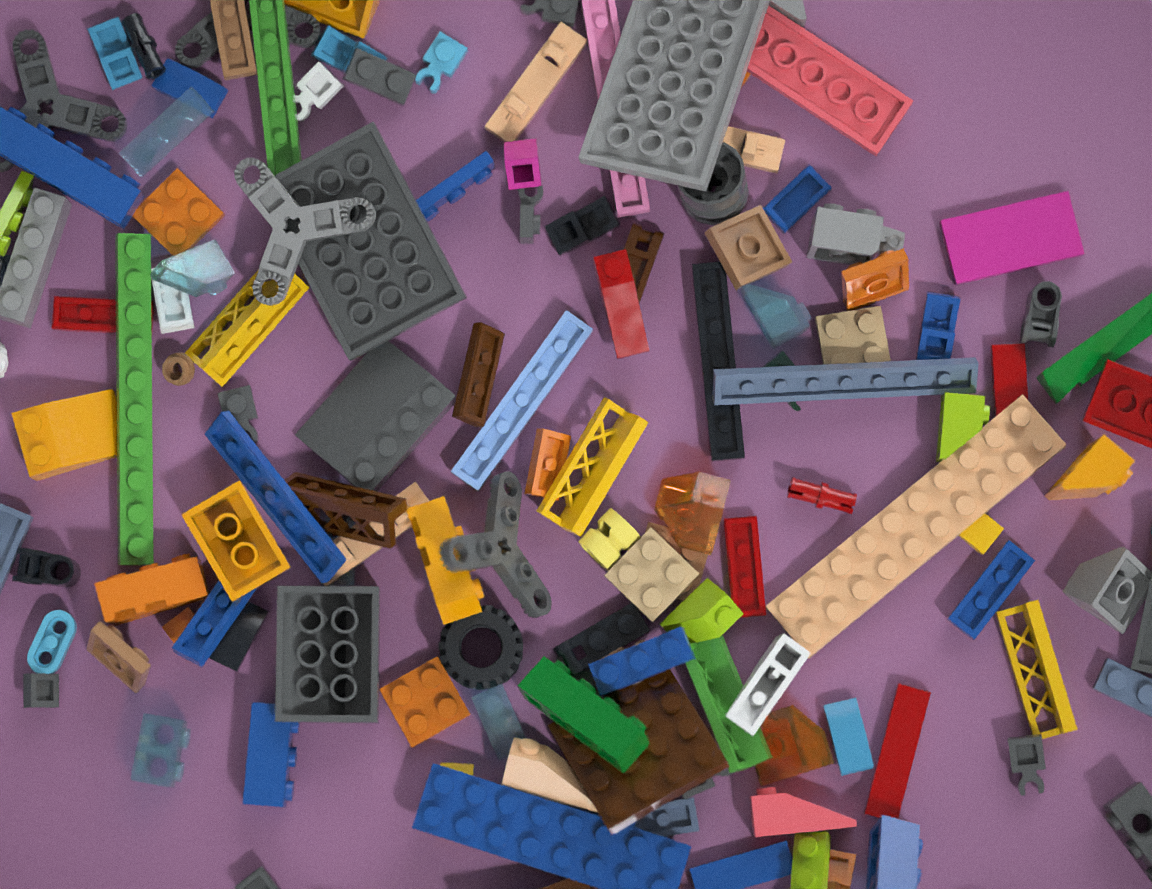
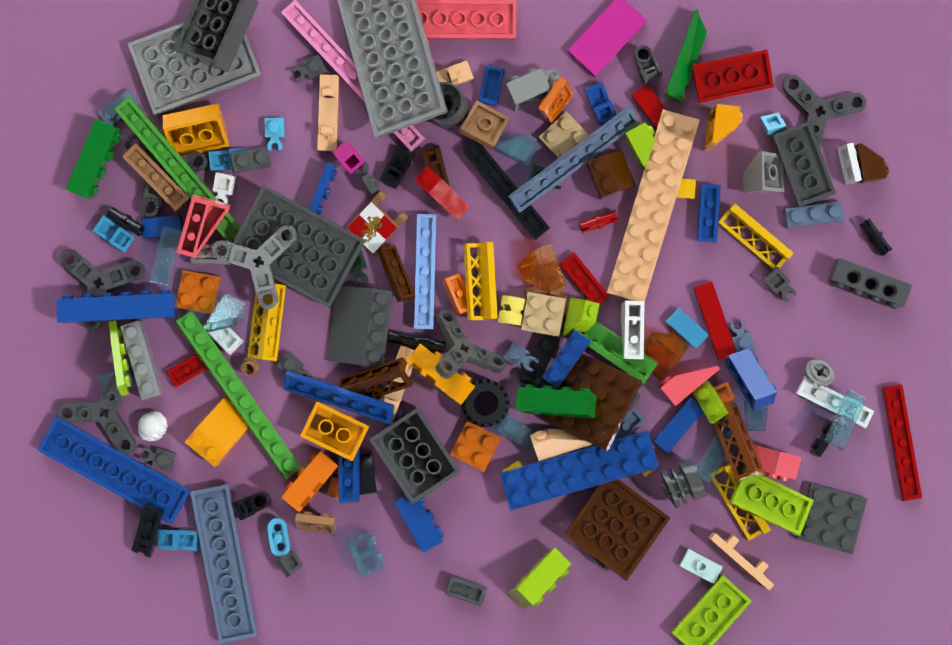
camera: 30 degrees left, 5 degrees up
(219, 166) = (206, 257): none -> light grey plate
(245, 117) = (200, 223): none -> coral wedge
(430, 329) = (358, 267): none -> clear green plate
(438, 488) = (414, 341): none -> black pin
(496, 286) = (375, 224): none -> flag
(575, 614) = (519, 356): none -> sand blue plate
(884, 438) = (610, 174): none -> reddish brown slope
(918, 808) = (742, 340): none -> sand blue plate

